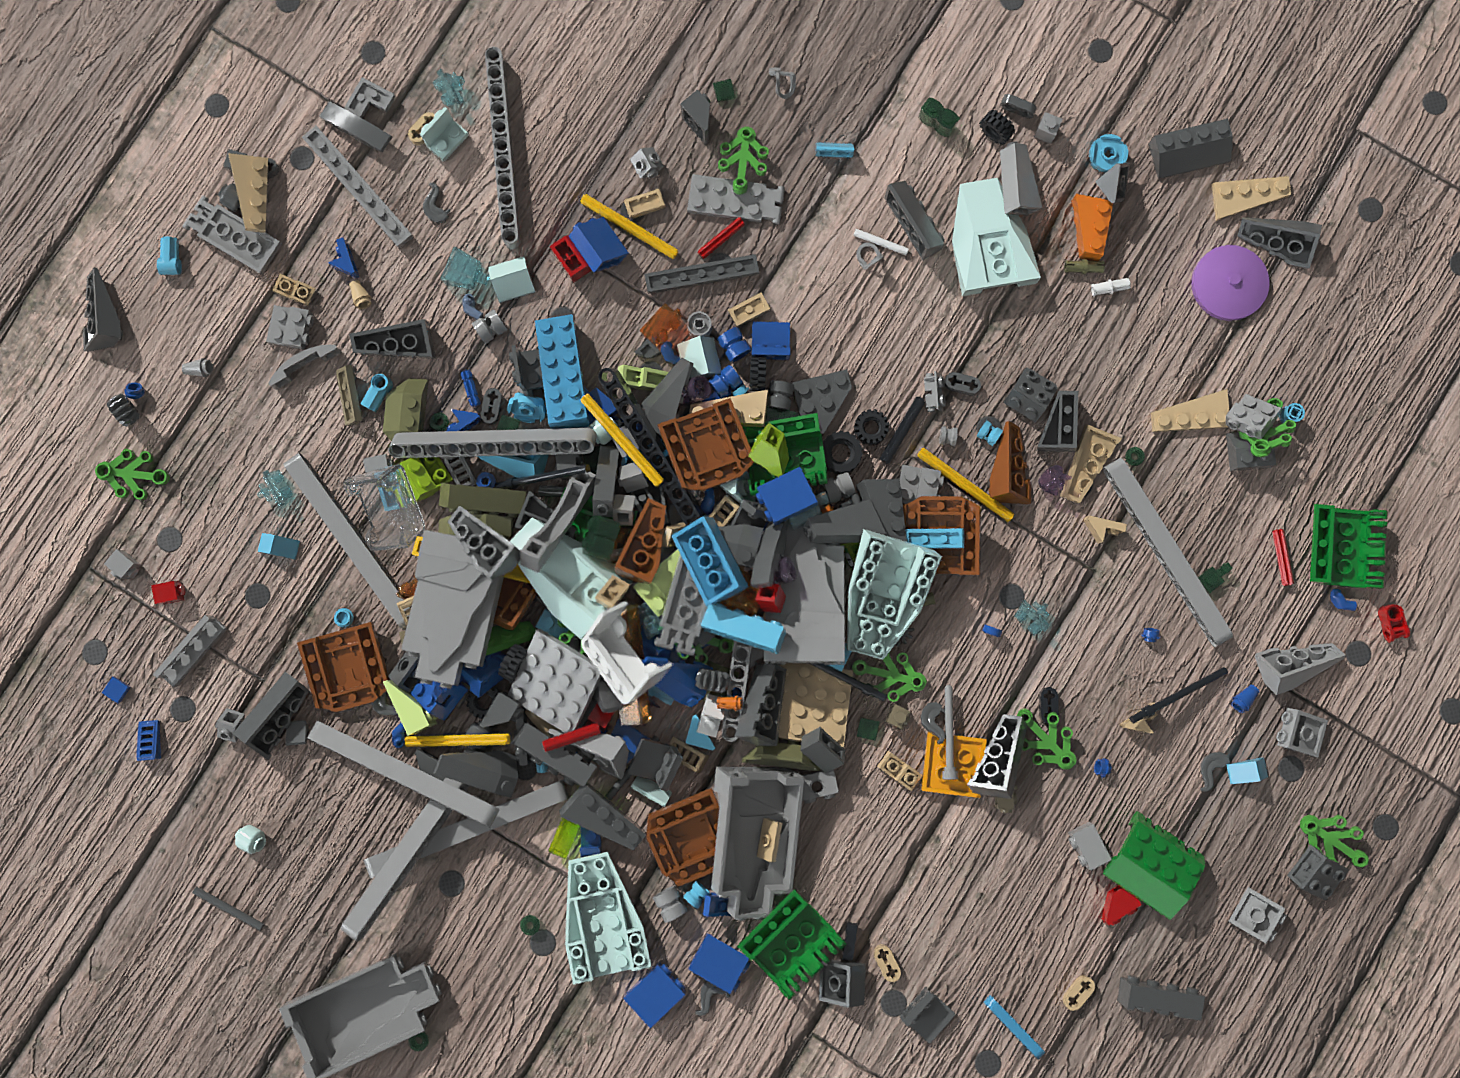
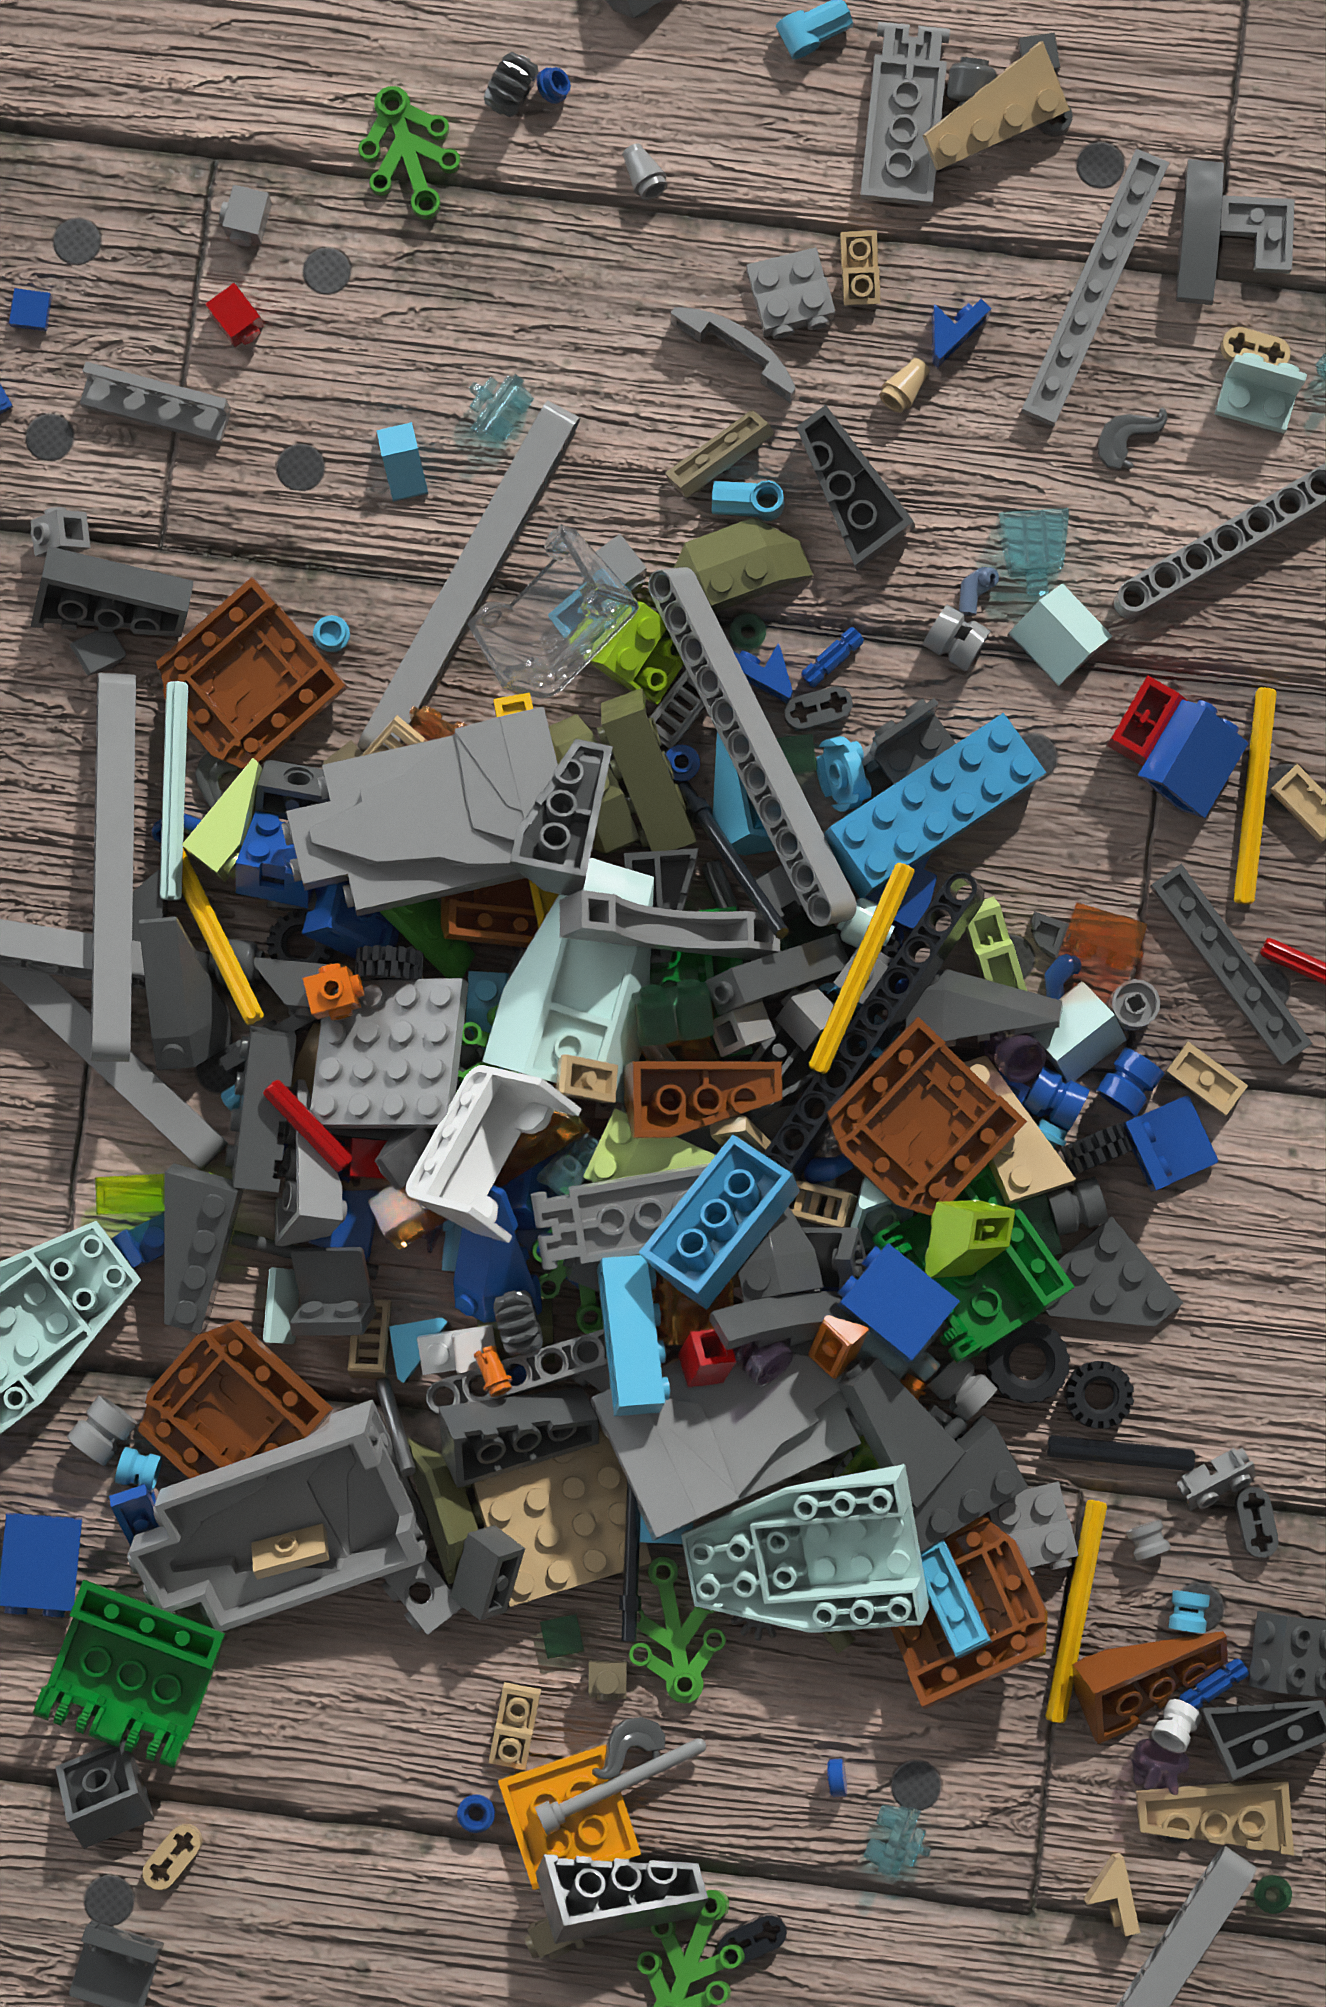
camera: 60 degrees right, 0 degrees up
(381, 727) = (173, 790): none -> light aqua axle
(514, 701) = (321, 988): none -> orange brick
(734, 762) = (395, 1427): none -> flat silver bar
(793, 534) = (837, 1344): none -> orange slope
(850, 939) = (183, 1773): black beam -> none
(938, 808) = (470, 1824): none -> blue plate
(1028, 438) = (1215, 1684): none -> blue axle
(1039, 463) = (1177, 1724): none -> white wheel

